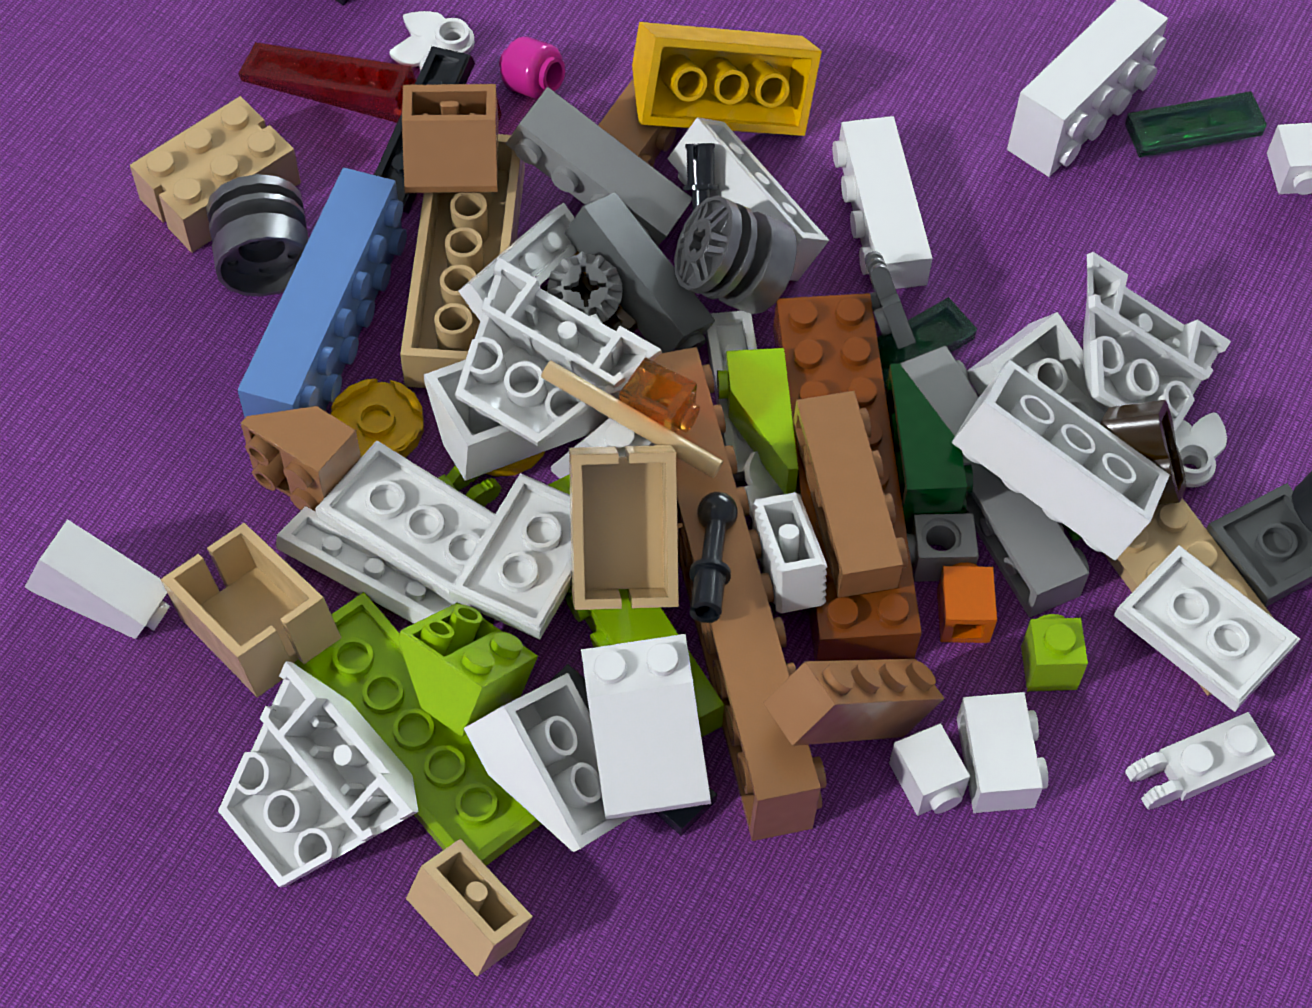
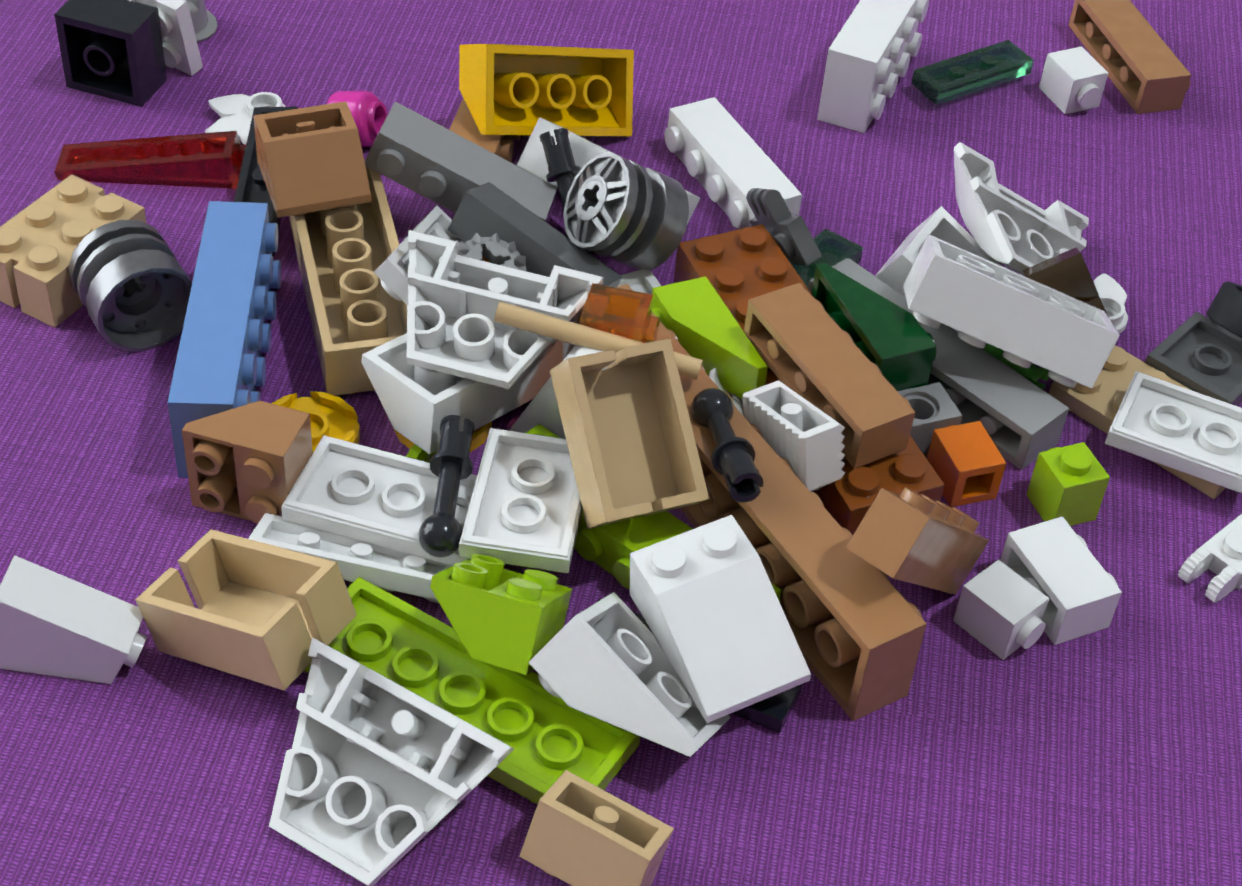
camera: 20 degrees left, 15 degrees down
(441, 570) = (441, 531): none -> black pin

